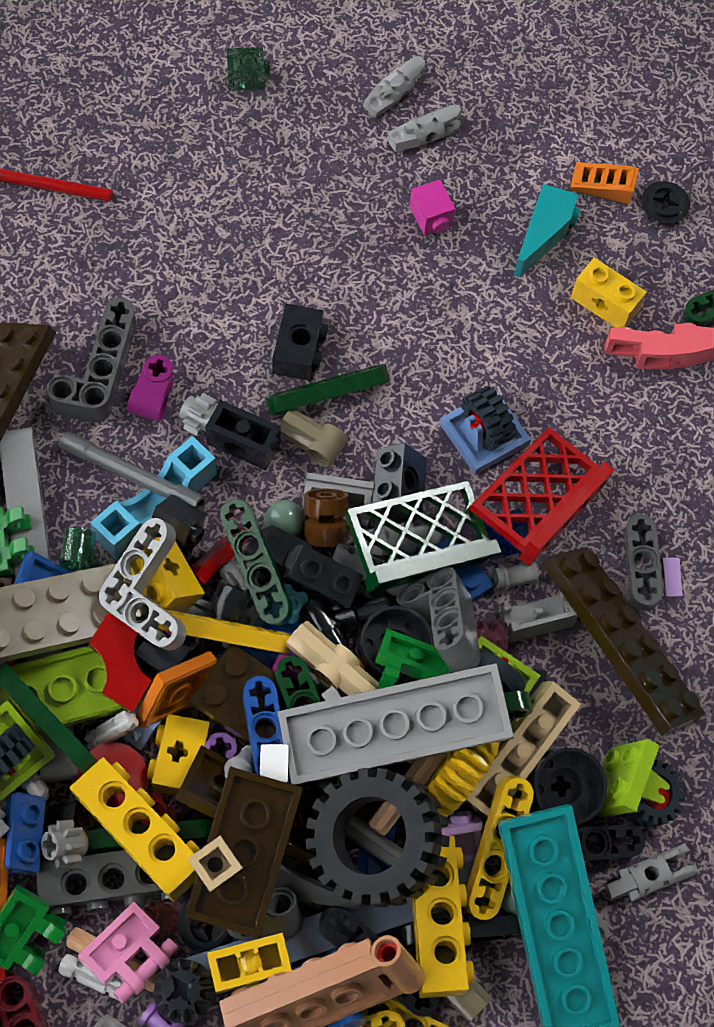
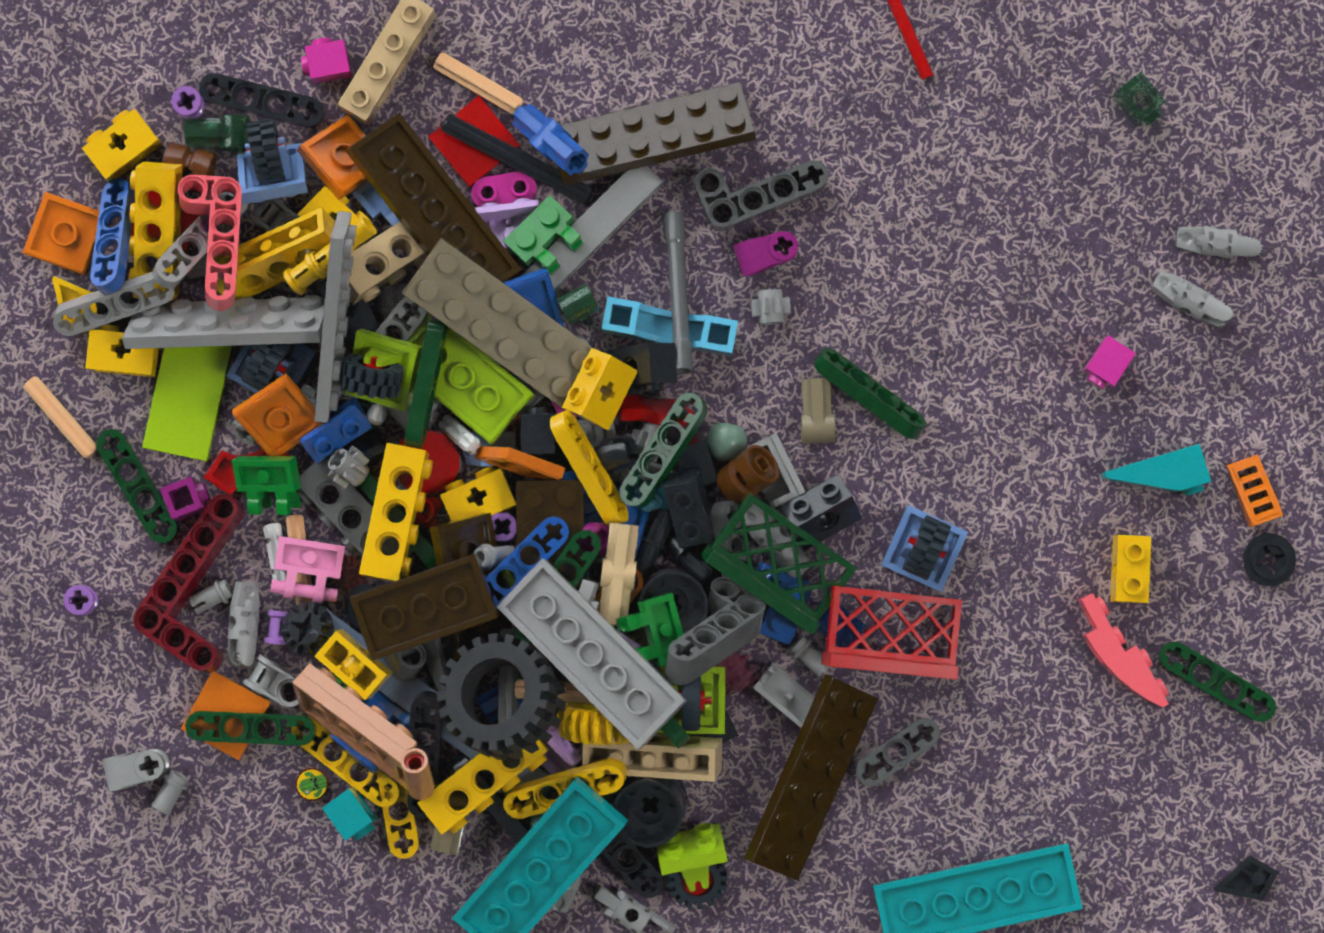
camera: 60 degrees right, 20 degrees up
(124, 678) = (496, 421): red tile -> none
(132, 594) = (560, 382): light grey beam -> none
(218, 849) = (384, 600): tan plate -> none
(243, 435) = (774, 356): black brick -> none
(274, 761) = (504, 582): white sticker -> none
(296, 325) = (909, 325): black brick -> none
(672, 576) = (903, 783): lavender piece -> none

